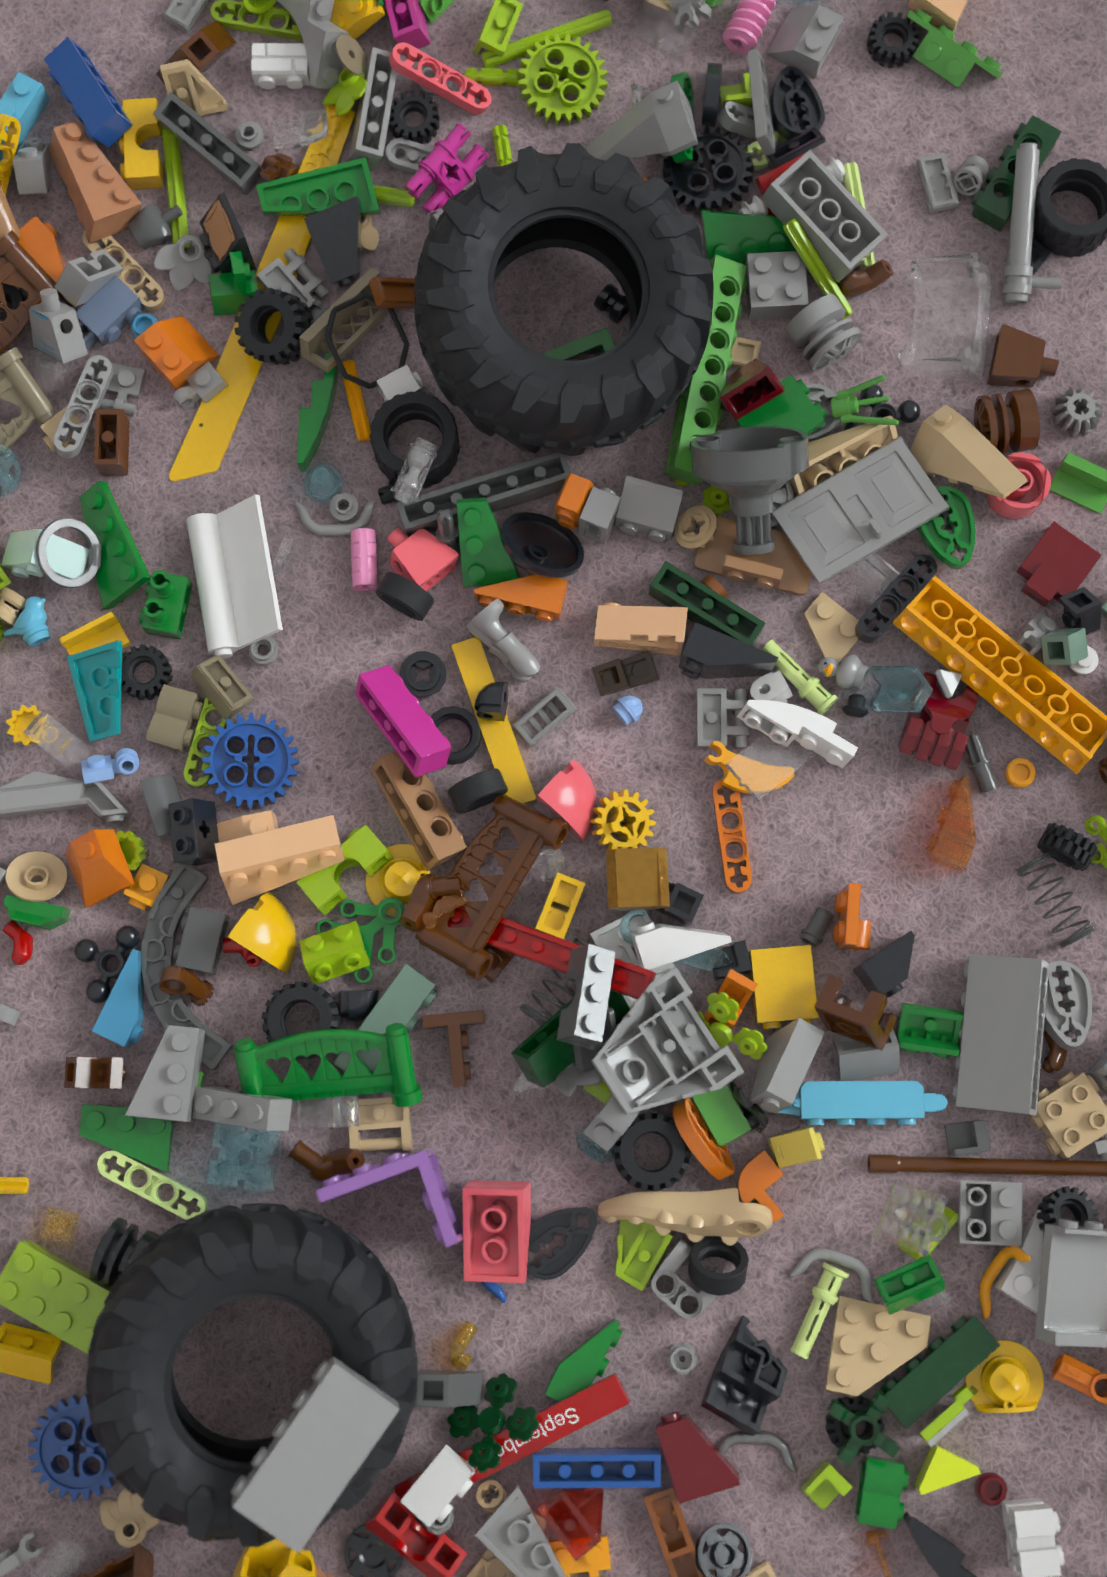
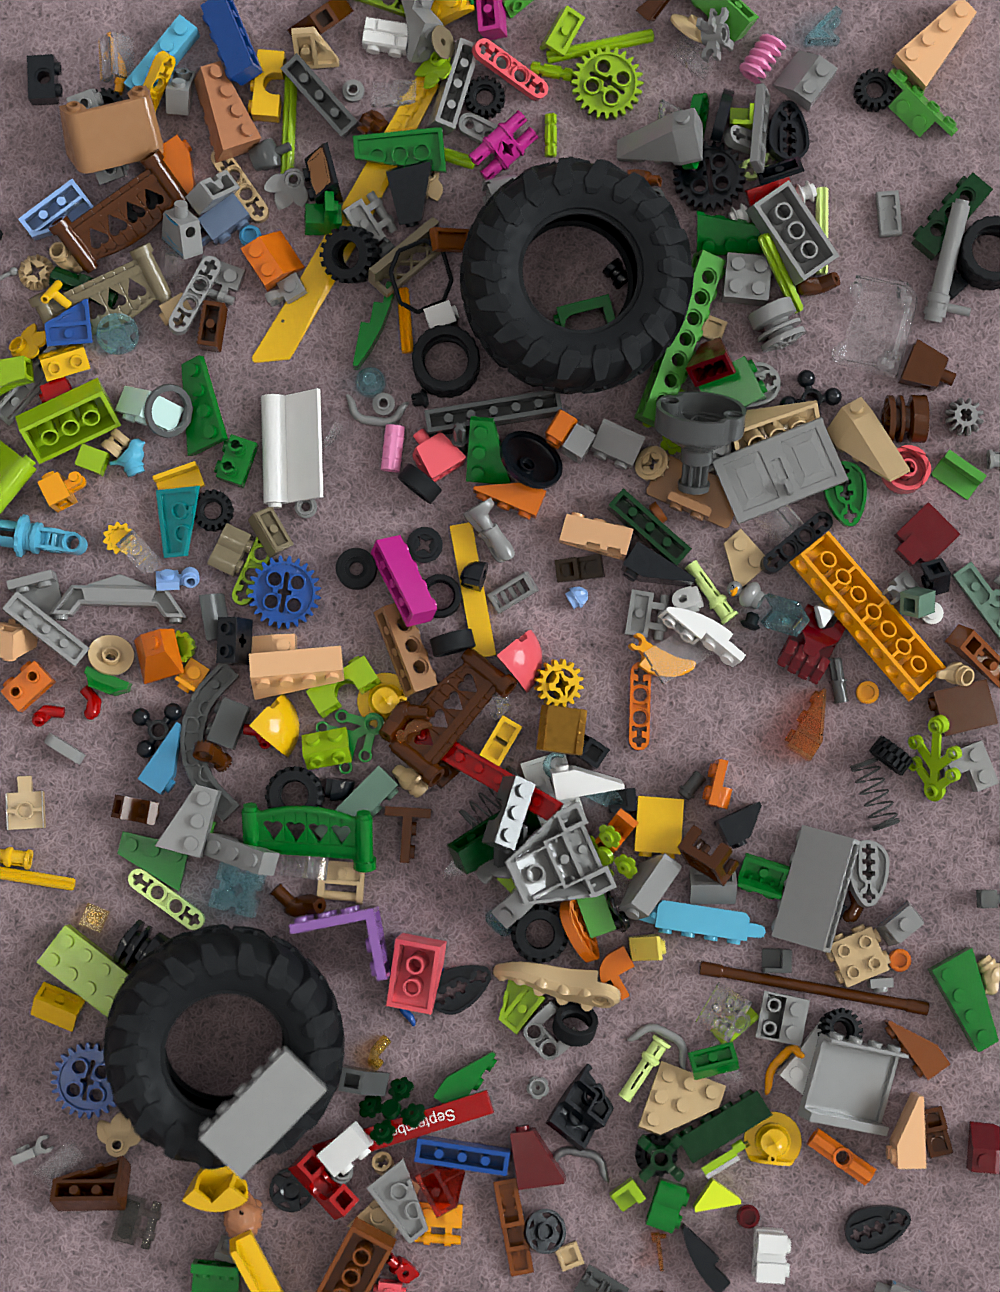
camera: 10 degrees right, 5 degrees up
(335, 701) = (360, 581): none -> black tyre
(418, 460) = (446, 381): clear piece -> none
(450, 977) = (410, 780): none -> tan animal
(845, 405) = (783, 386): bright green plant -> none
(971, 175) = (916, 213): light grey wheel -> none

